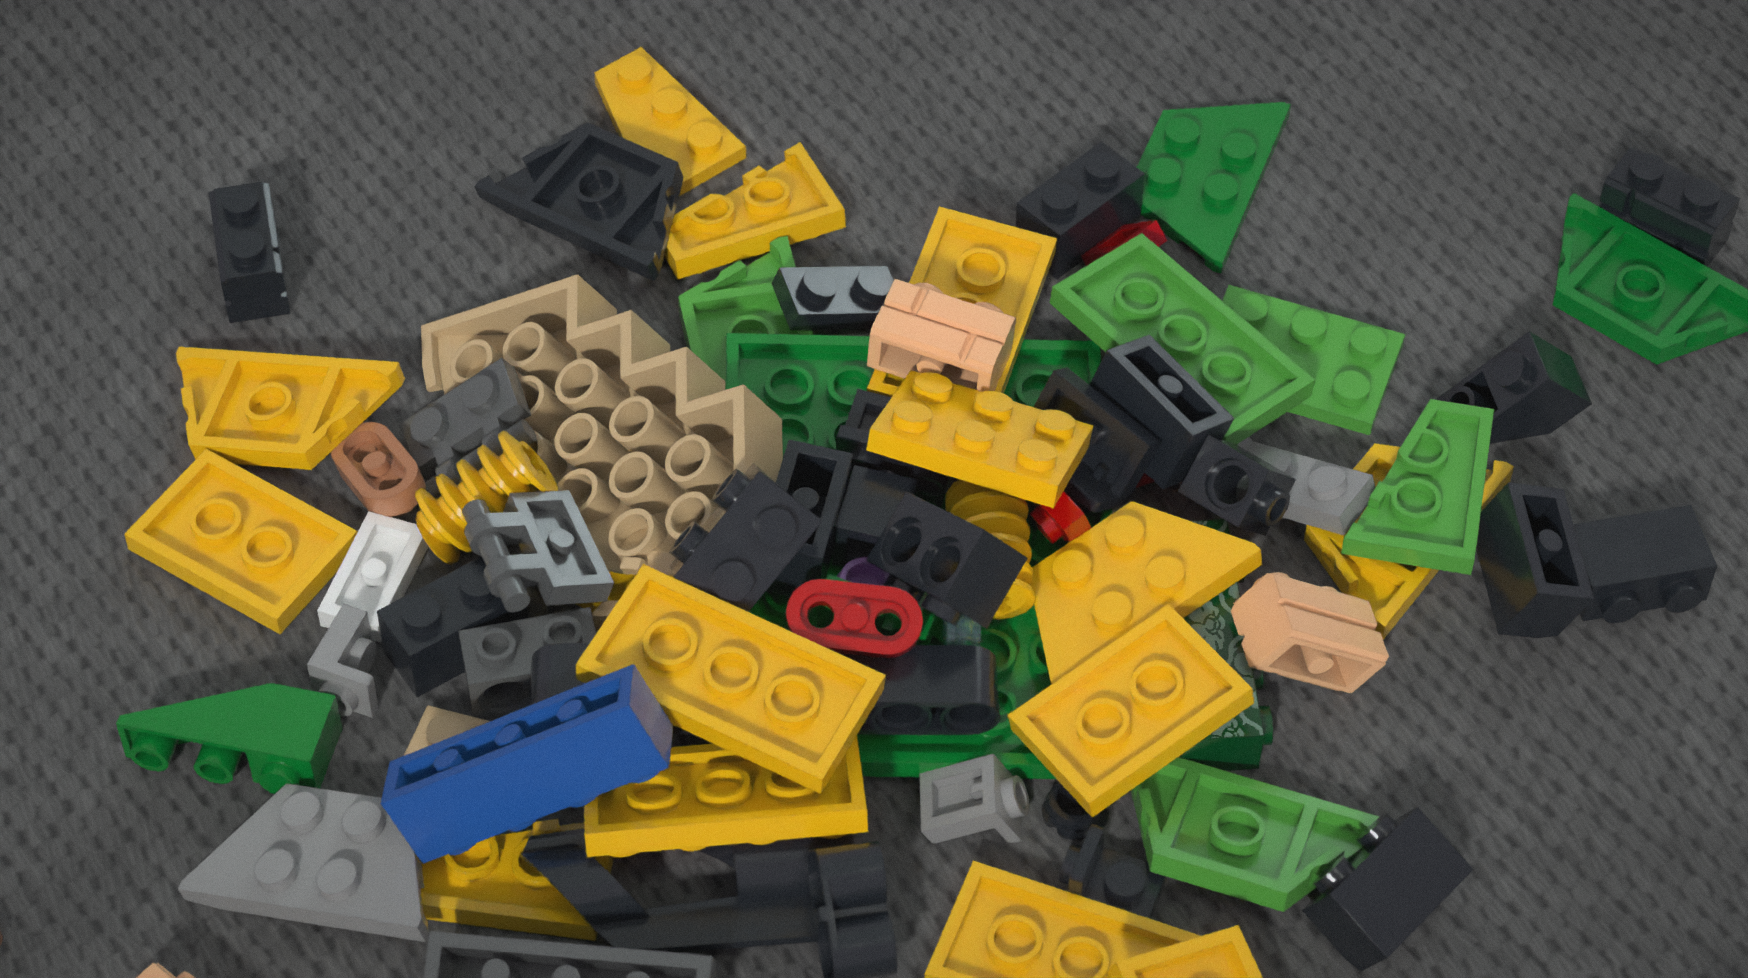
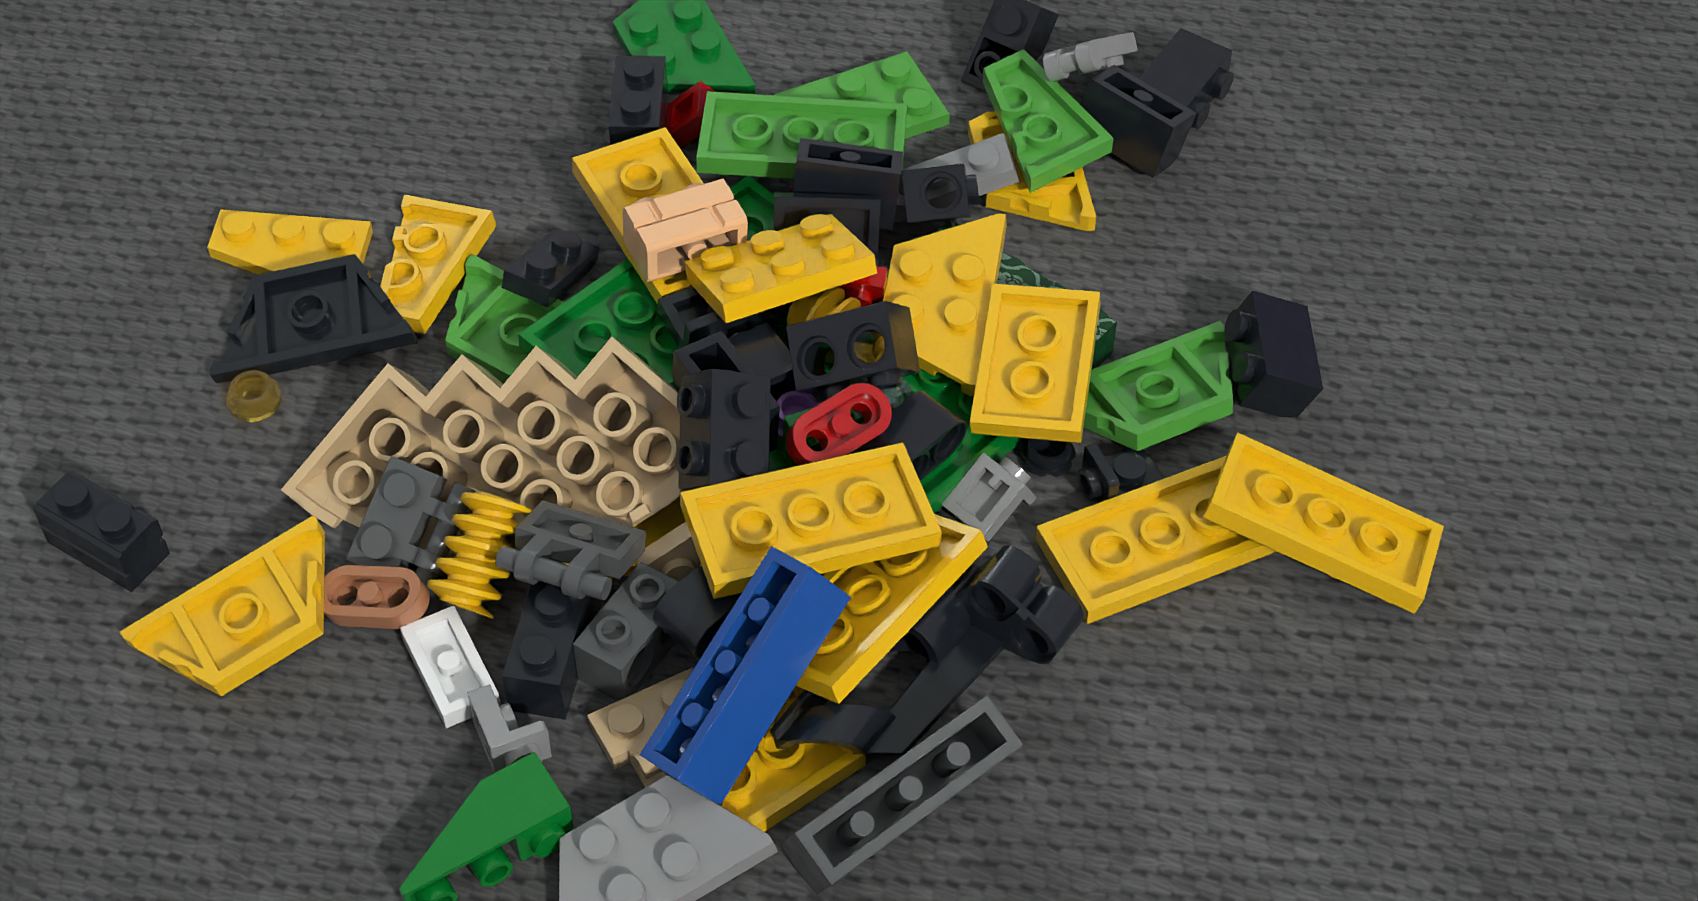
camera: 45 degrees left, 0 degrees up
(241, 540) = (326, 717): yellow plate -> none
(488, 216) = (248, 385): none -> clear yellow plate
(1309, 633) = (1069, 247): light nougat brick -> none
(1554, 464) = (1088, 56): none -> light grey plate

